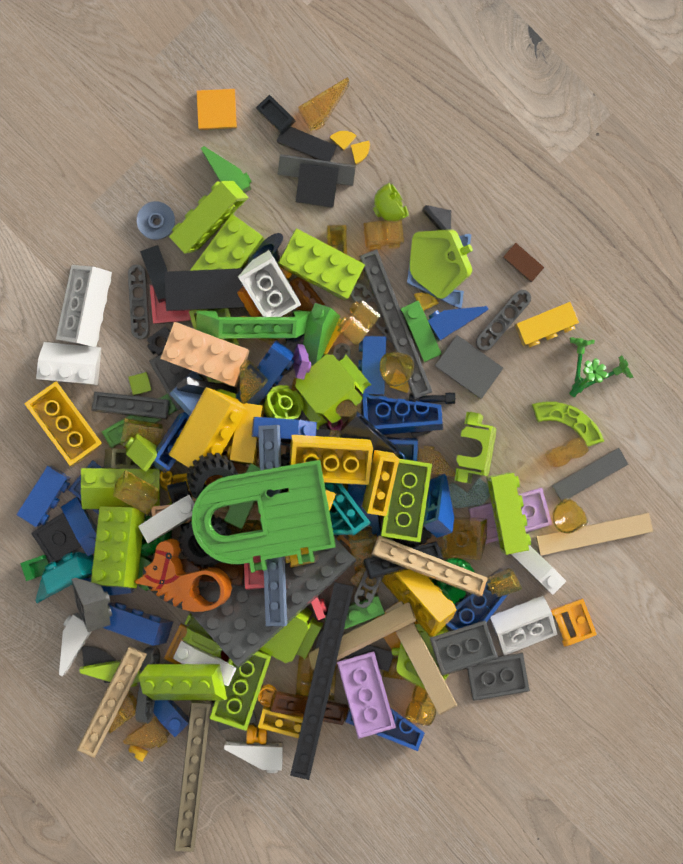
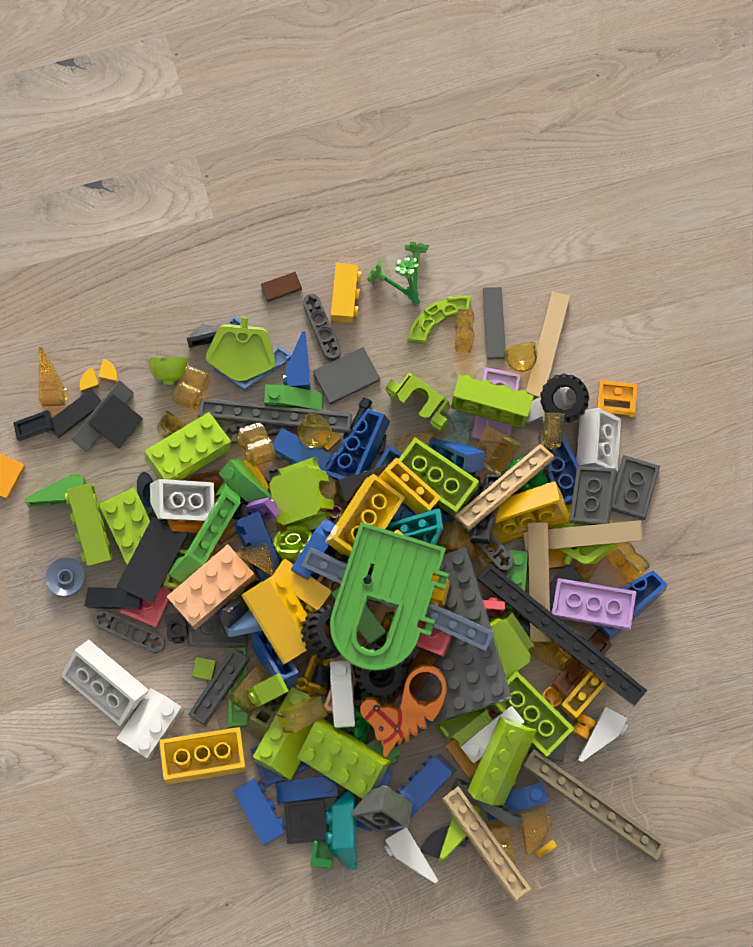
camera: 65 degrees left, 15 degrees down
(426, 300) = (270, 379): yellow tile -> none
(560, 578) = (576, 385): none -> black tyre

